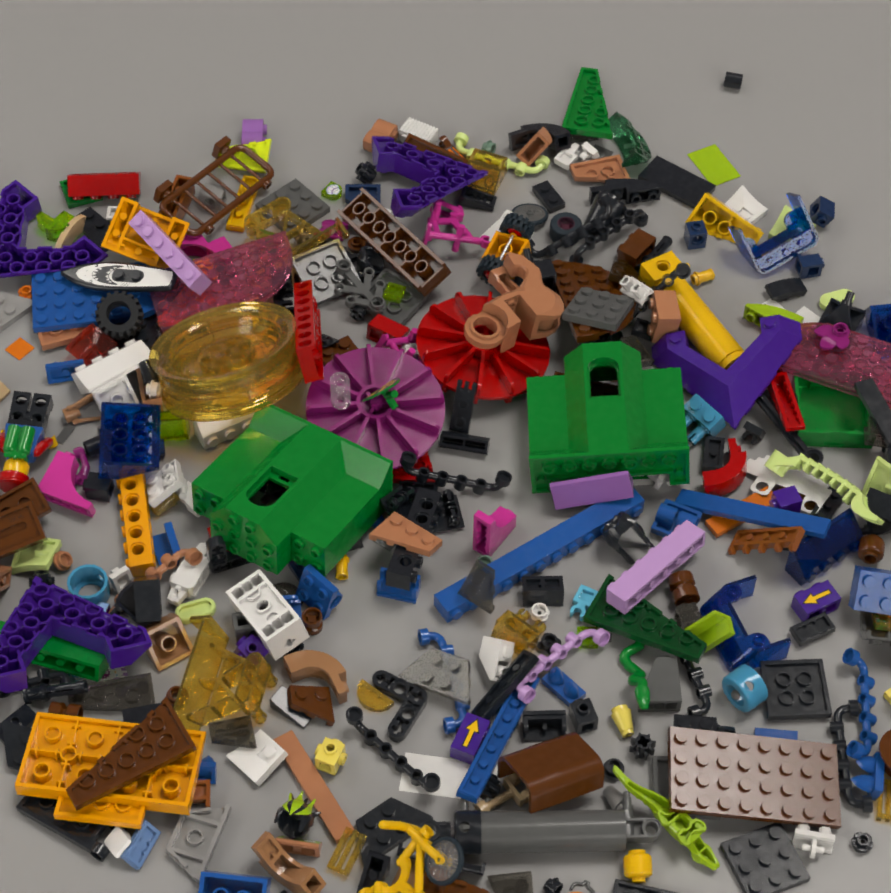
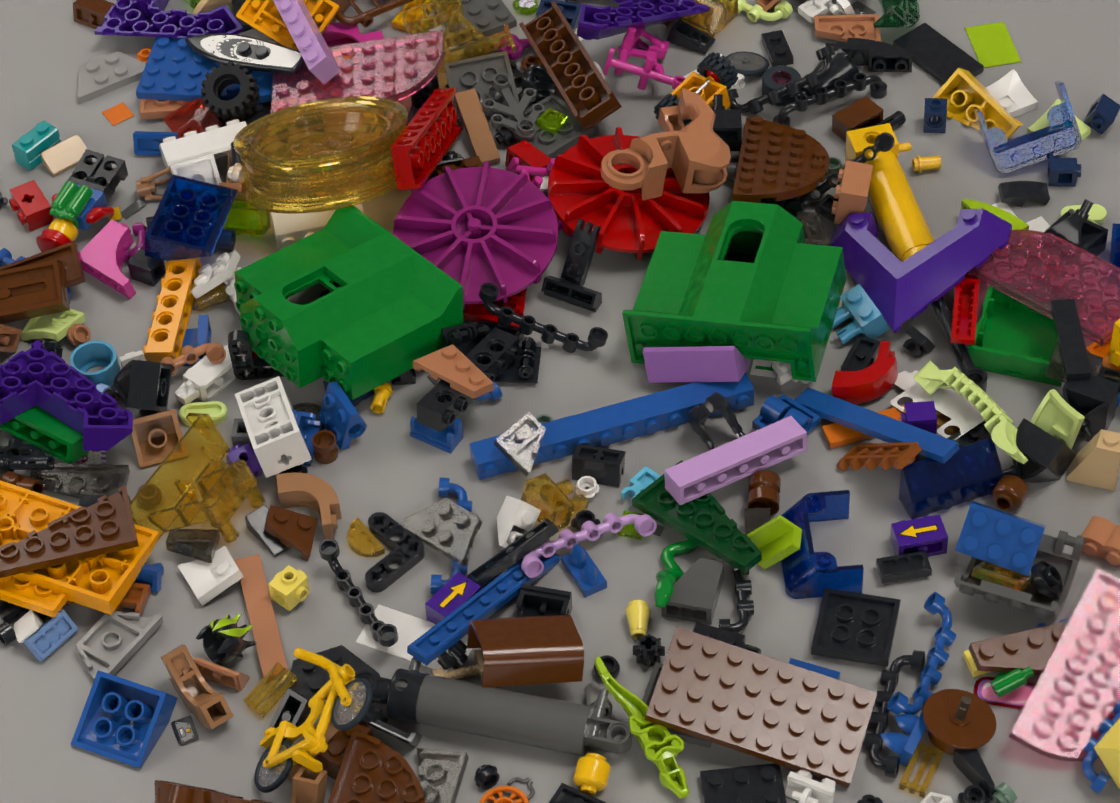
camera: 20 degrees right, 5 degrees down
(334, 309) = (477, 126): none -> medium nougat tile
(340, 392) = (434, 206): clear plate -> none
(389, 396) = (486, 215): green shield -> none
(492, 530) = (563, 390): dark pink arch -> none
(583, 715) = (592, 605): black brick -> none
(598, 309) = (771, 169): dark grey plate -> none
(620, 269) = (827, 142): dark brown wing -> none
(635, 289) = (825, 157): white hips -> none
(736, 681) = (795, 611): dark azure piece -> none
(833, 336) = (1049, 247): magenta plate -> none

